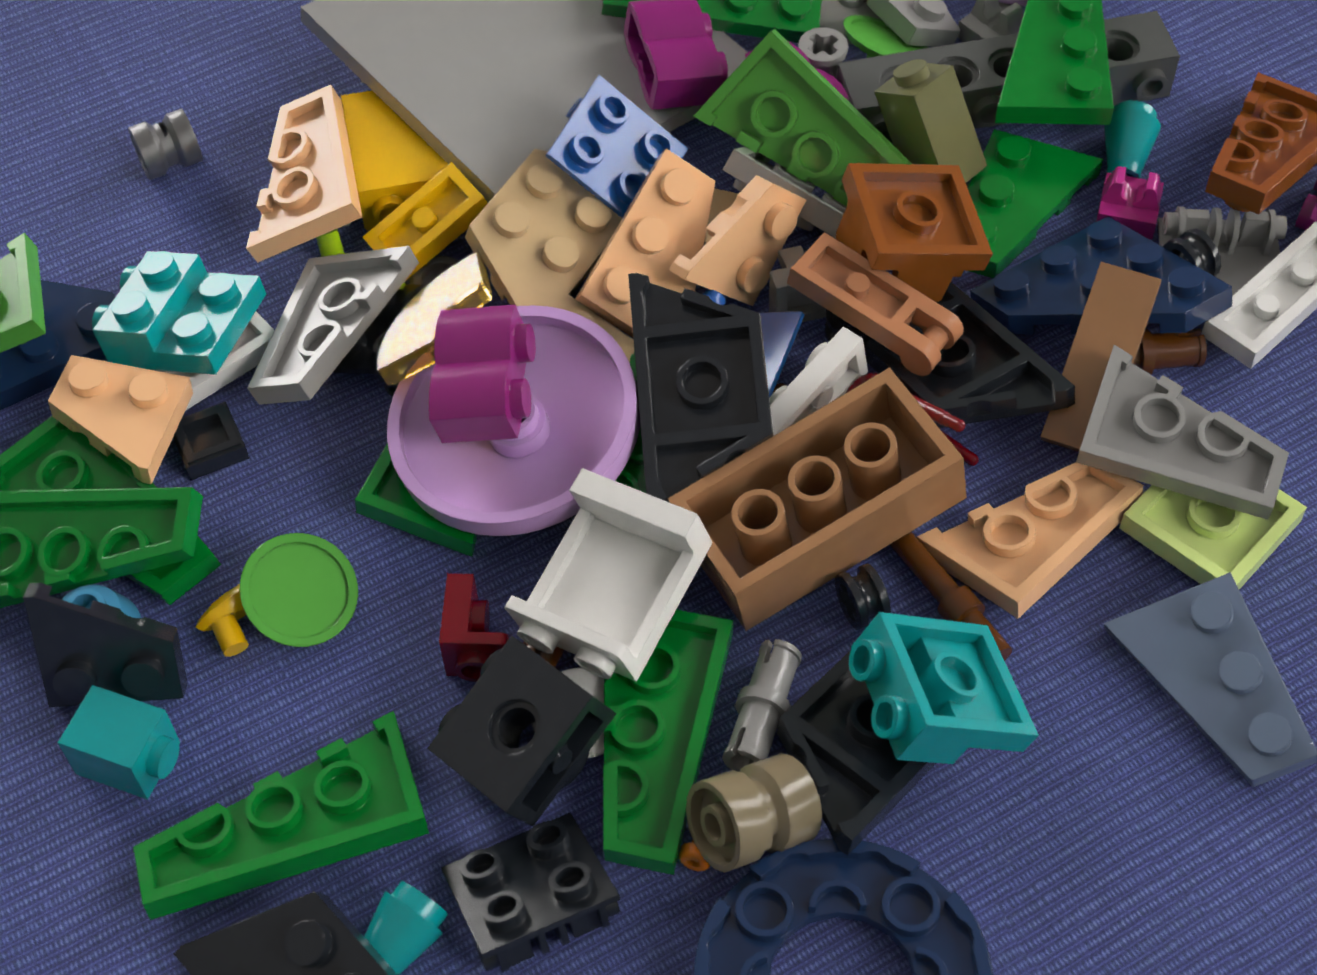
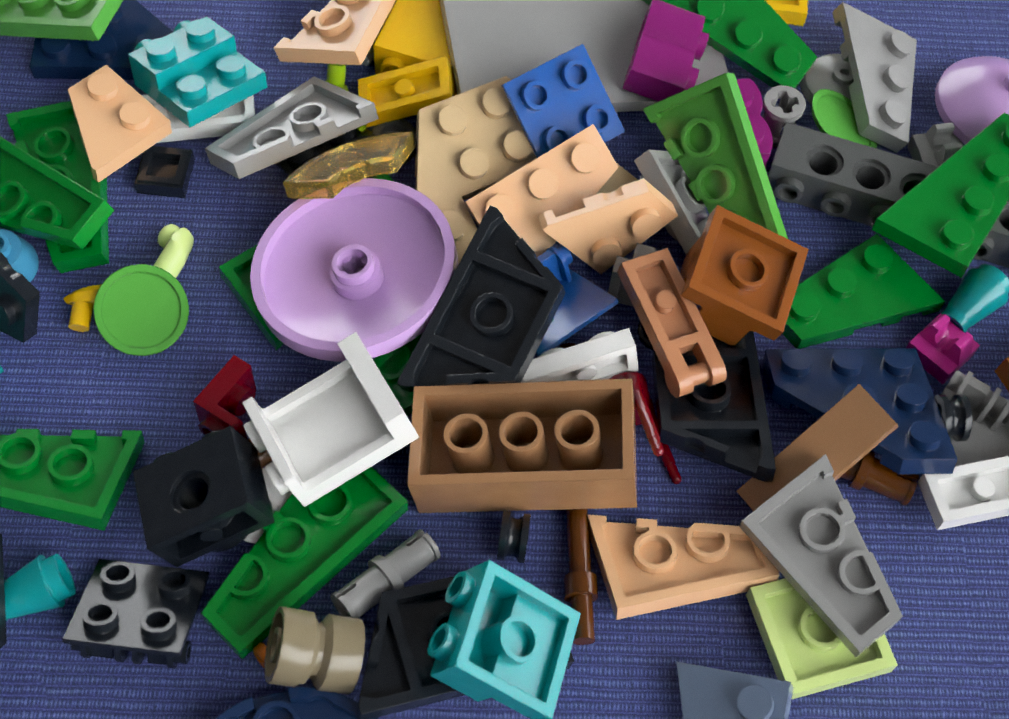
camera: 25 degrees right, 5 degrees up
(285, 506) = (176, 248): none -> yellowish green arm
(480, 373) = (342, 223): magenta brick -> none
(930, 117) = (818, 205): olive brick -> none

